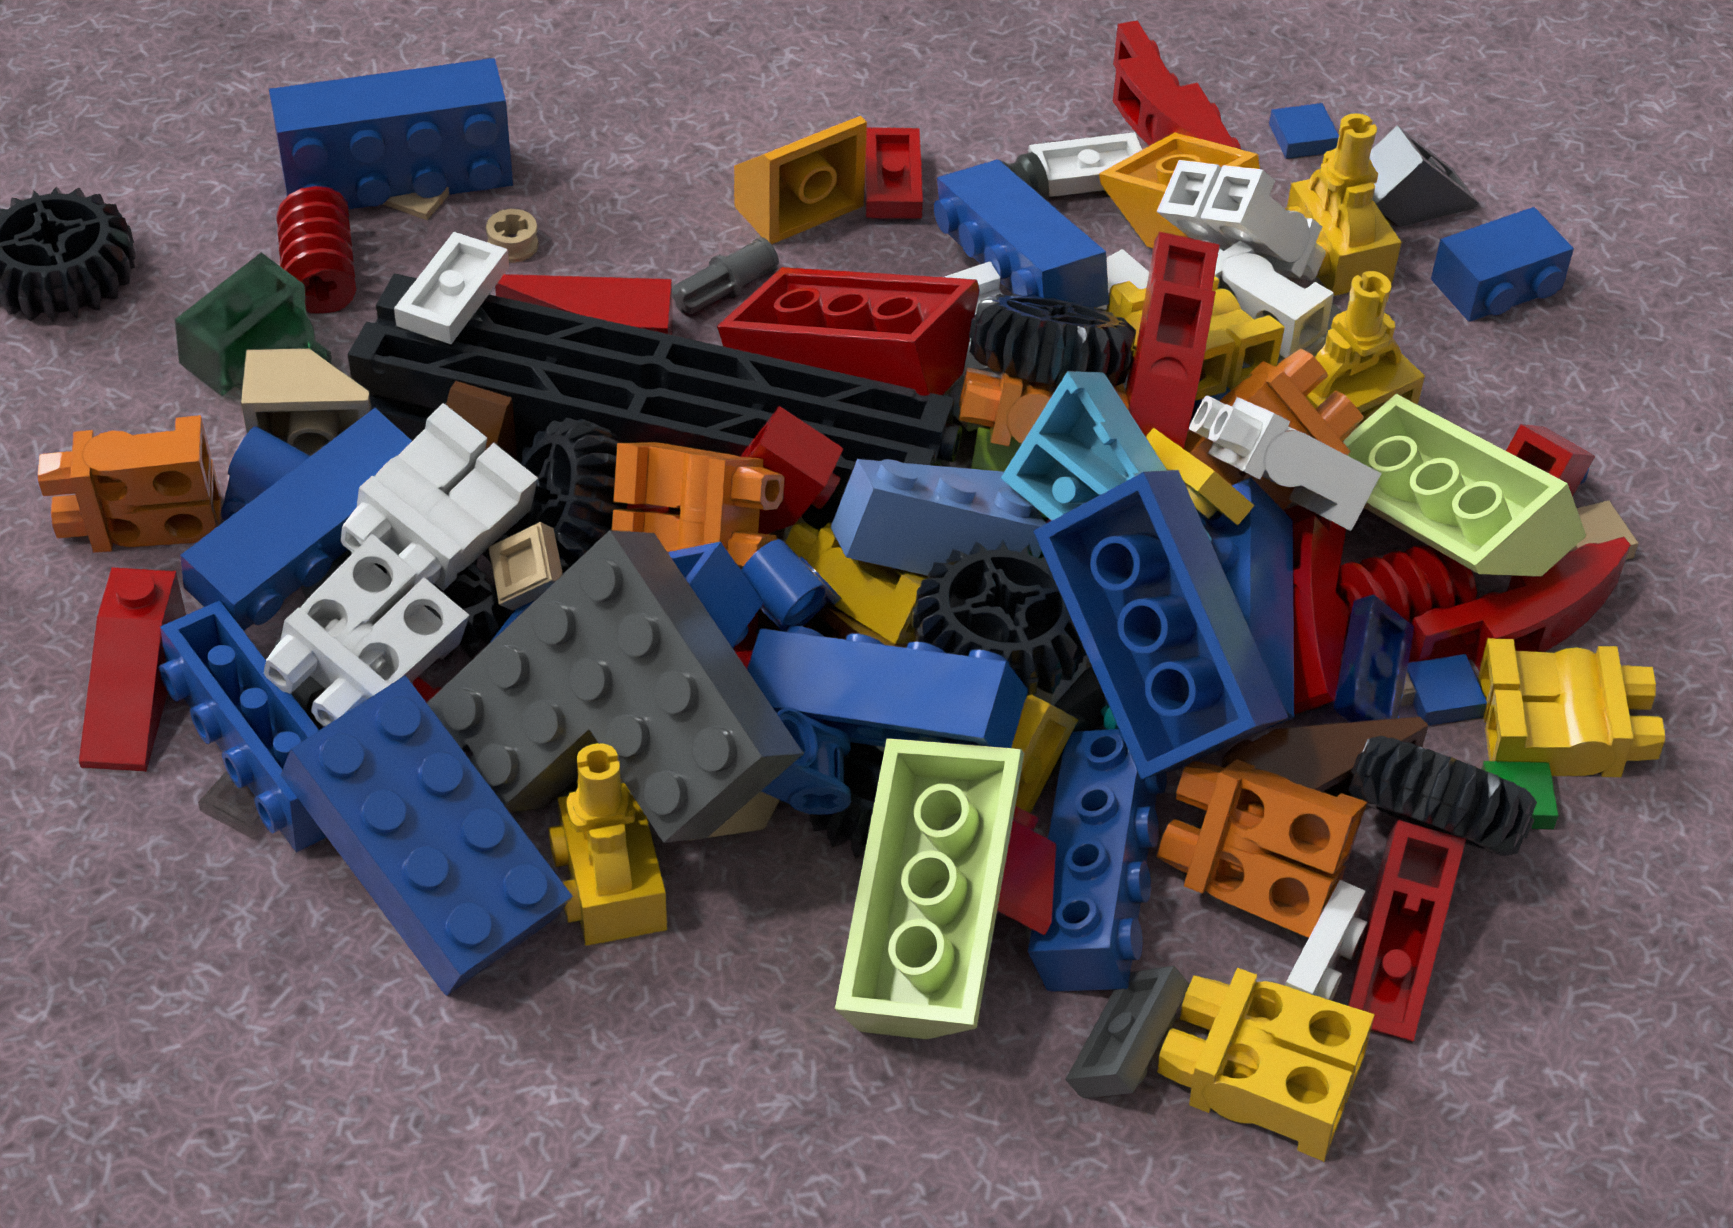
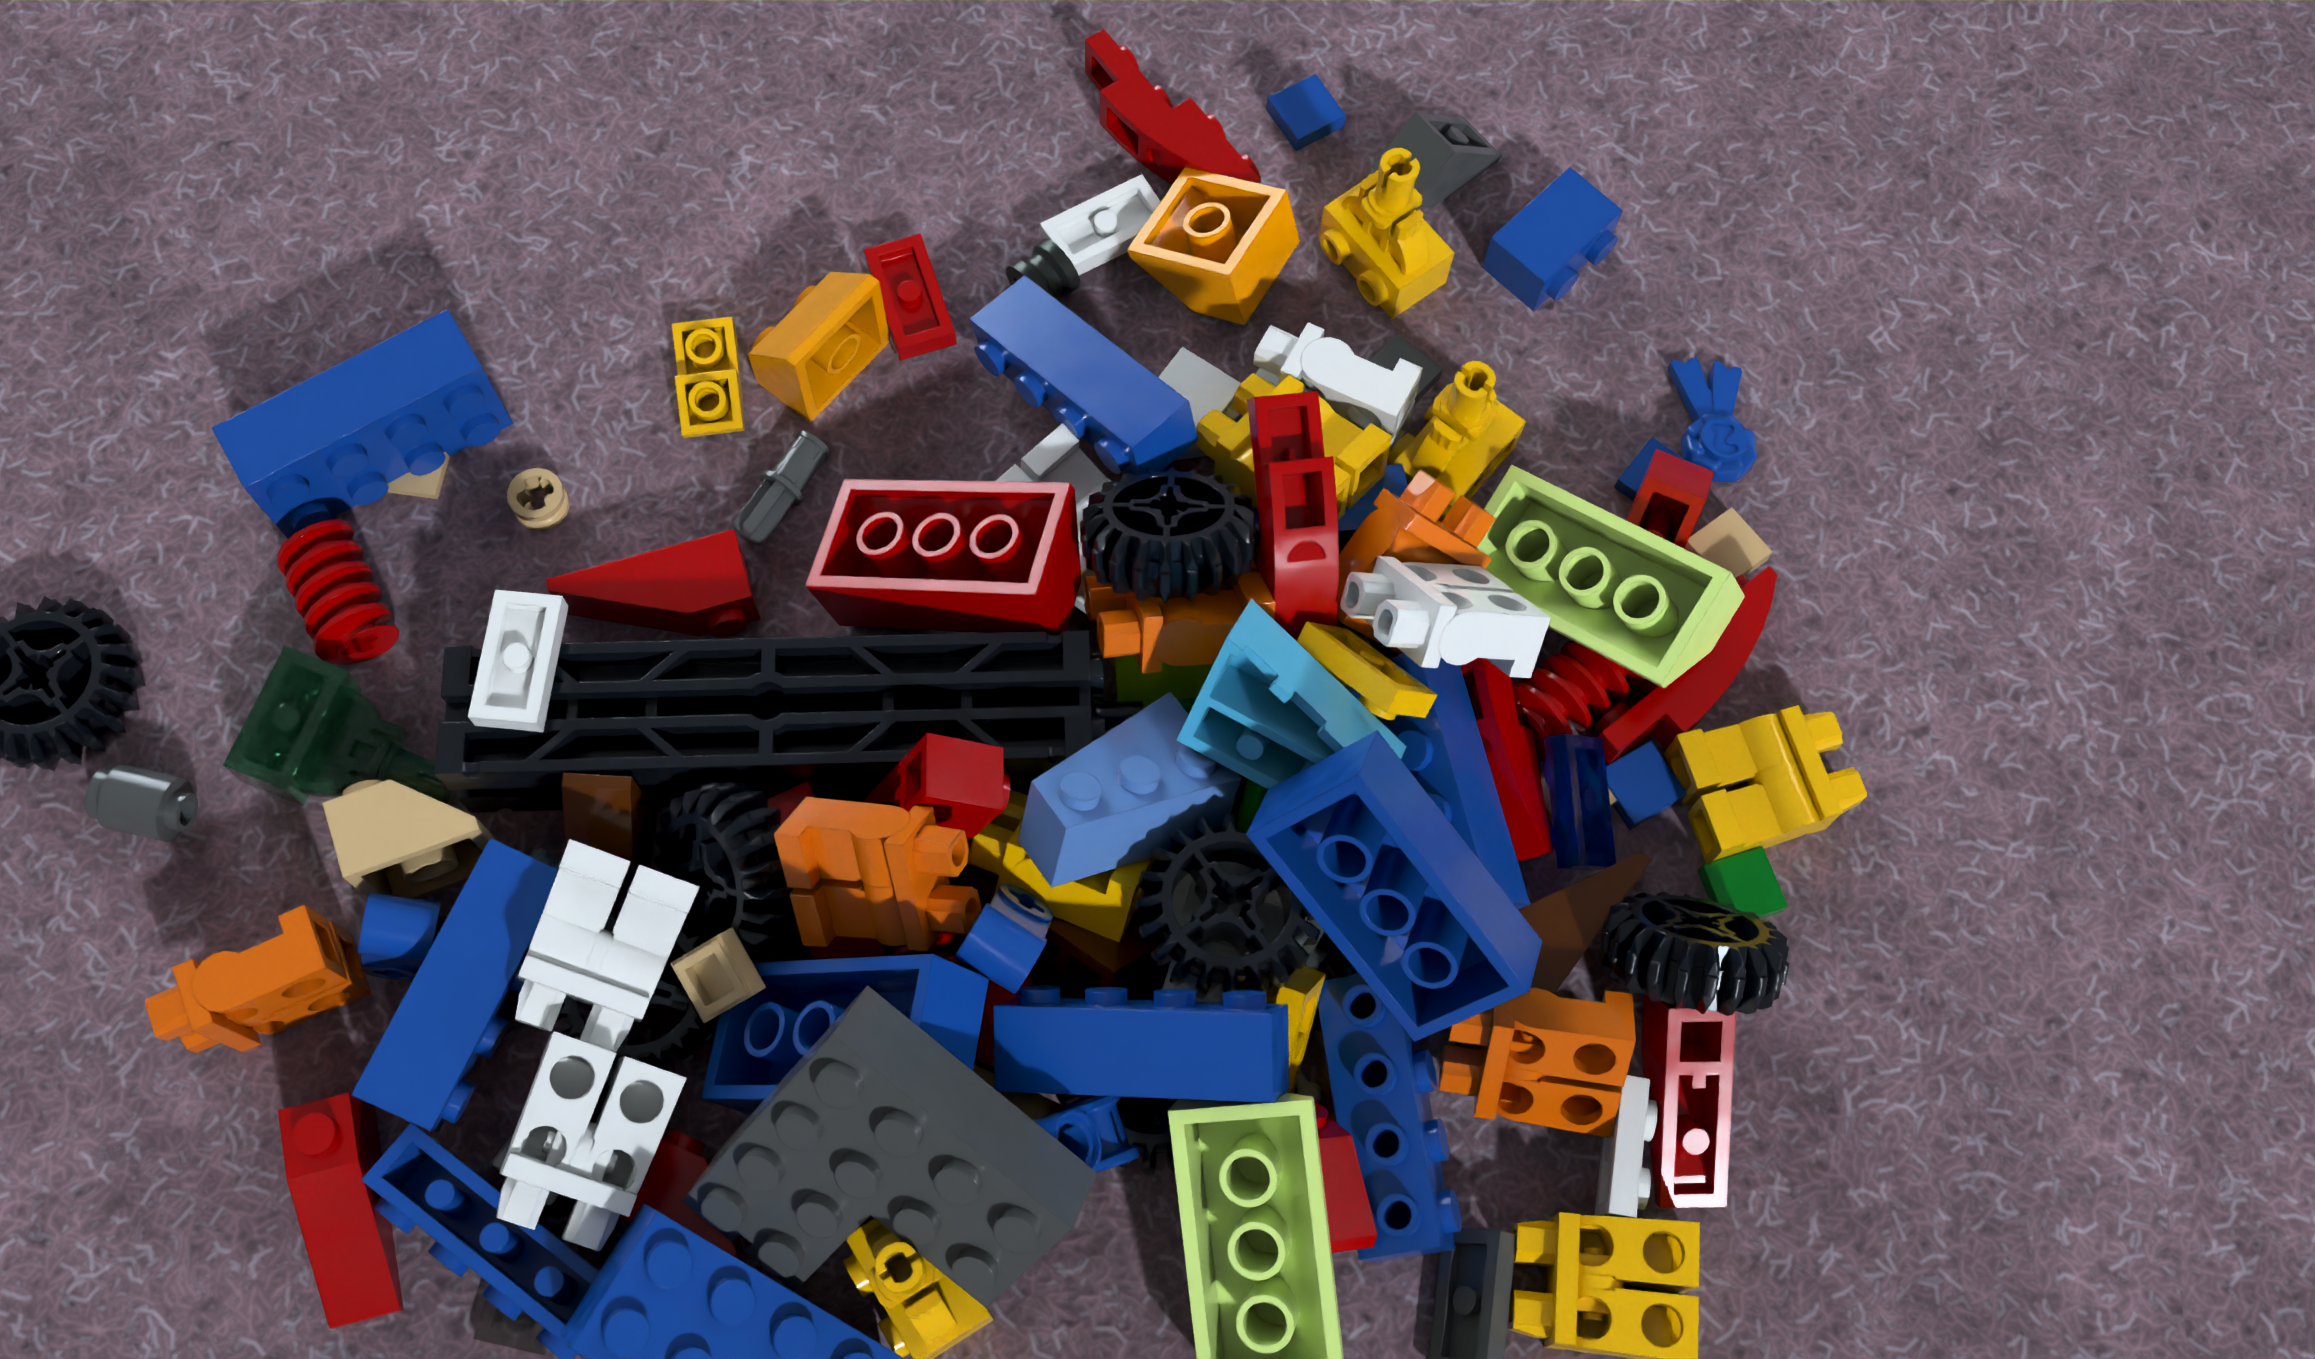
camera: 20 degrees left, 20 degrees up
(92, 350) = (141, 802): none -> dark grey brick
(693, 187) = (708, 377): none -> yellow slope
(1236, 206) = (1296, 287): white hips -> none
(1614, 434) = (1715, 436): none -> blue piece

